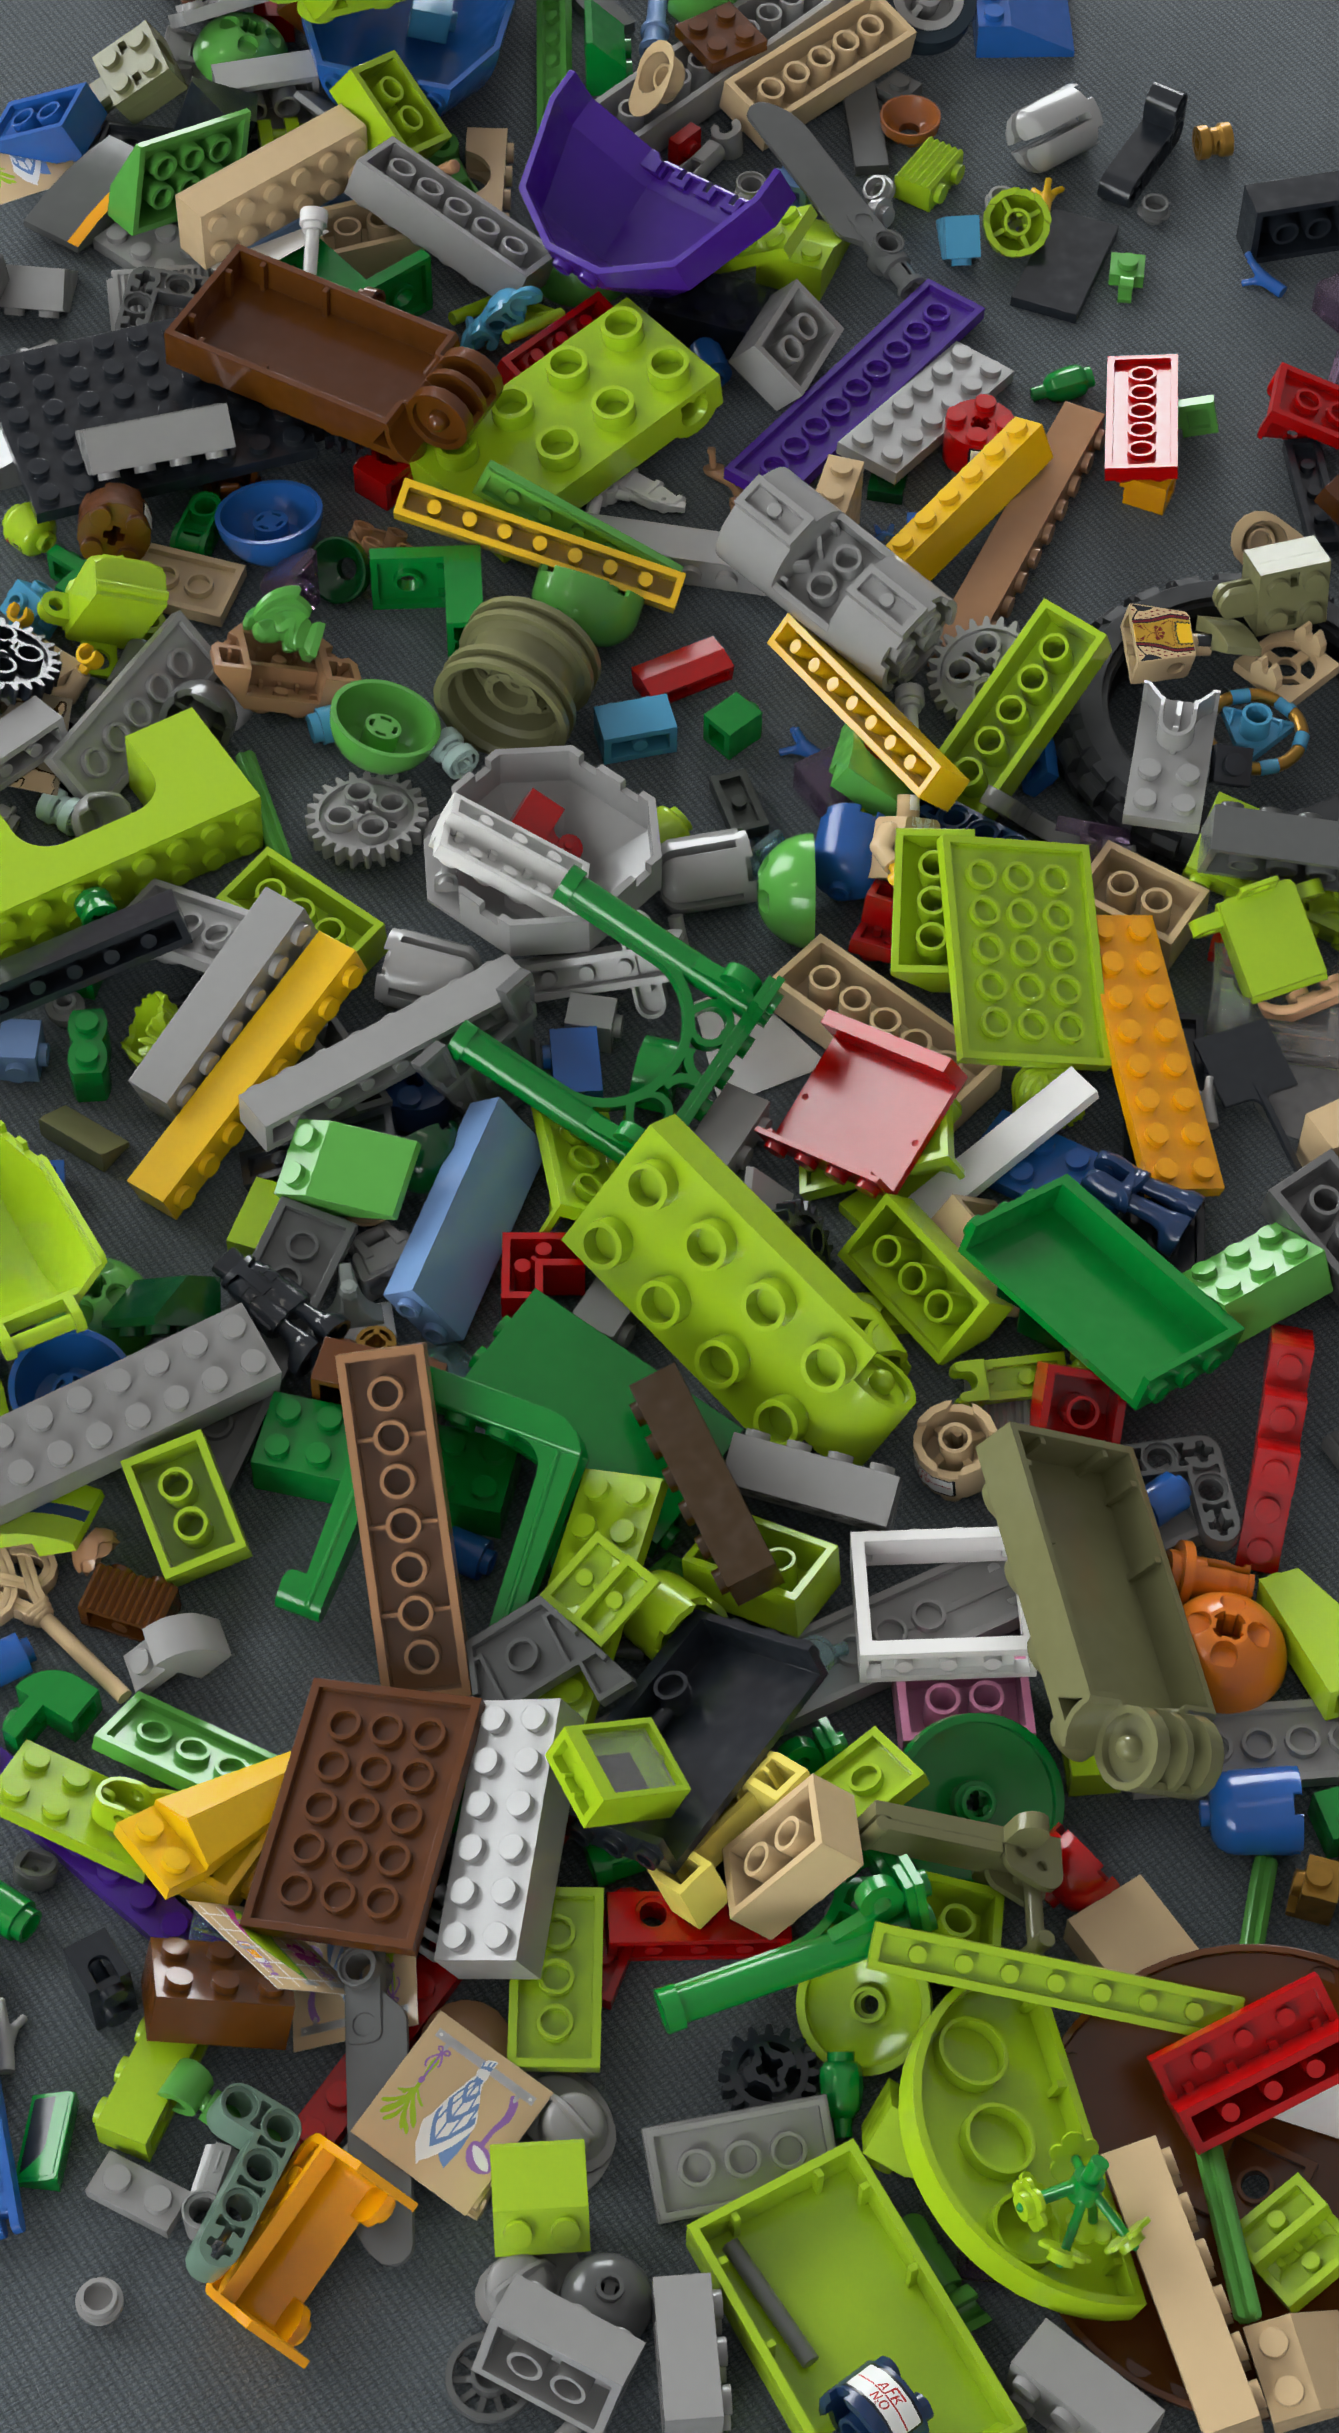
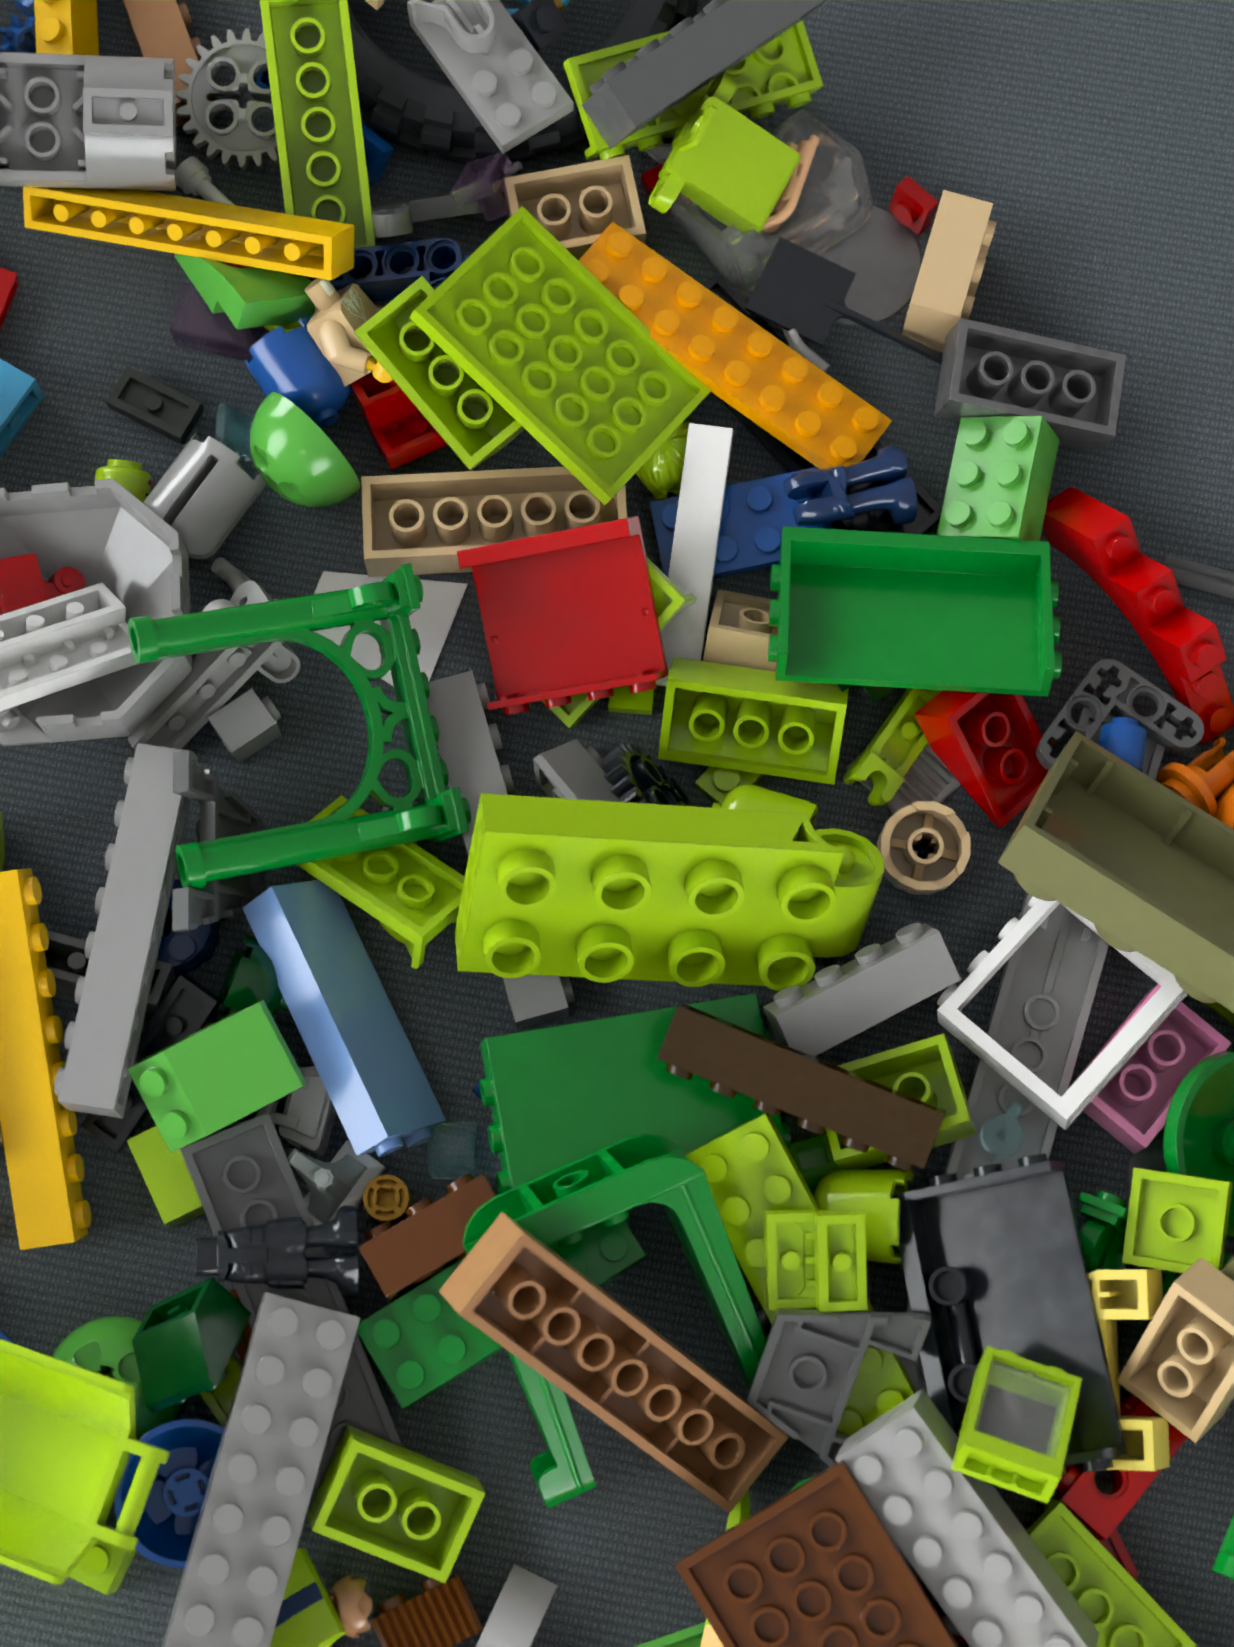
camera: 45 degrees left, 20 degrees up
(420, 966) = (68, 811): light grey cylinder -> none
(473, 1553) = (648, 1301): blue brick -> none
(537, 1262) = (435, 1009): red brick -> none
(575, 1059) = (280, 784): blue brick -> none
(651, 1061) = (346, 721): green brick -> none
(732, 725) = (73, 332): green brick -> none
(802, 745) = (149, 300): blue bar -> none

